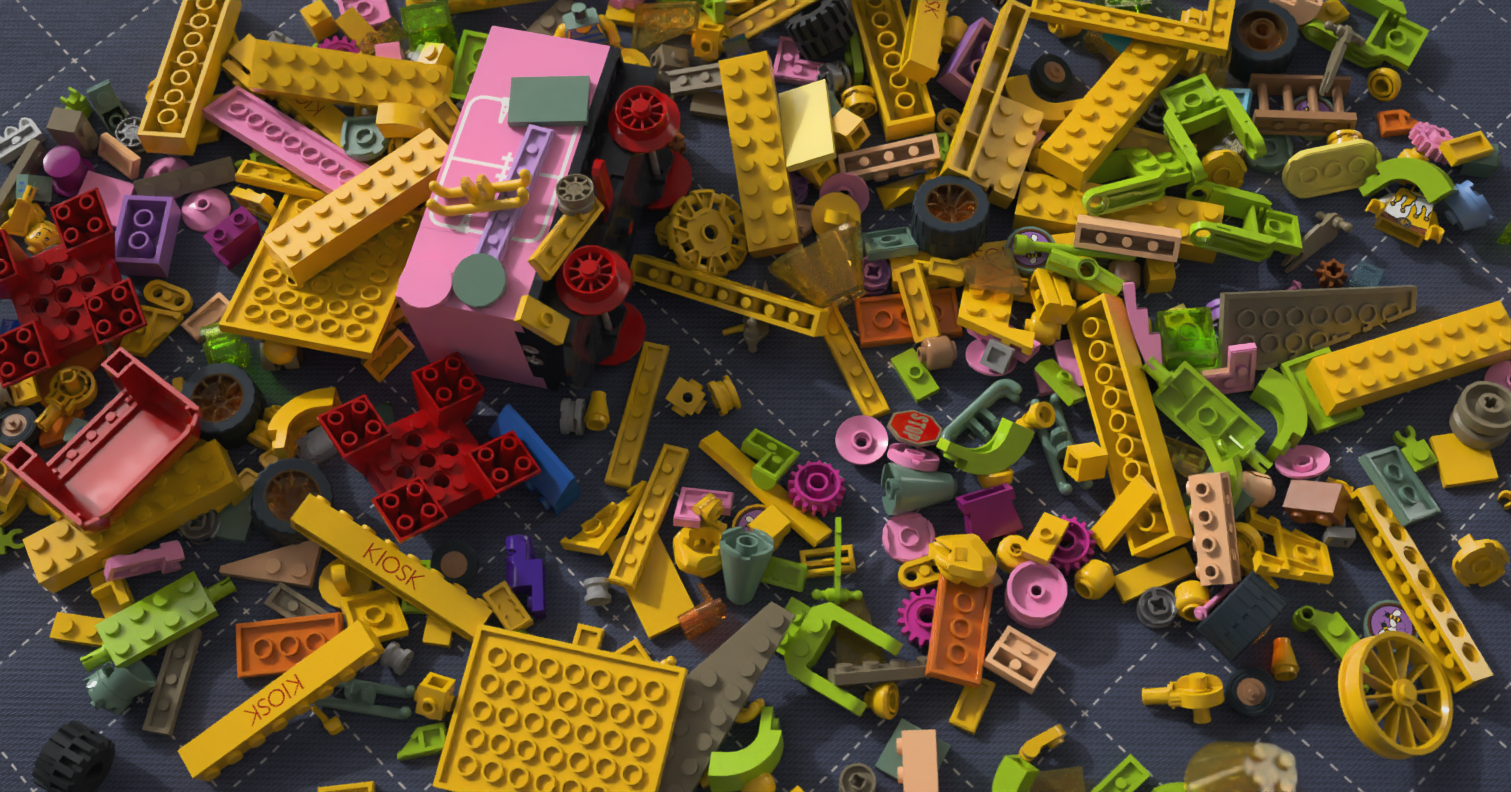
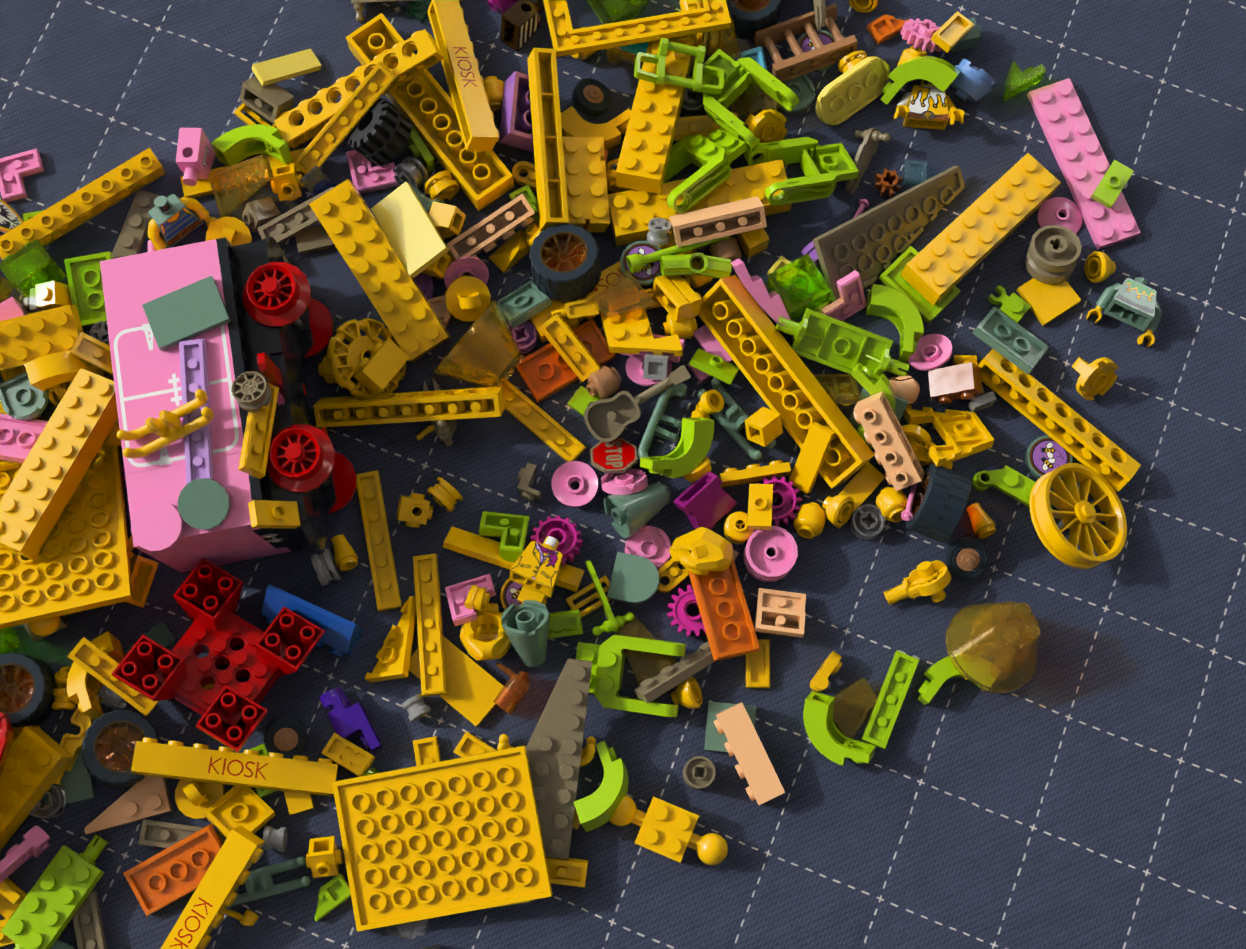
camera: 30 degrees left, 10 degrees up
(308, 407) = (101, 667): none -> yellow plate
(717, 244) = (380, 366): none -> yellow brick
(784, 499) = (538, 566): none -> yellow torso
(812, 416) = (526, 478): none -> dark tan bracket
(878, 559) = (633, 579): none -> sand green tile
(928, 387) = (610, 416): none -> dark tan piece
(1033, 503) = (754, 473): none -> yellow plate
(1060, 225) = (658, 231): none -> light grey wheel
(1130, 579) = (838, 509): none -> yellow brick
(1162, 95) = (698, 68): none -> lime bar

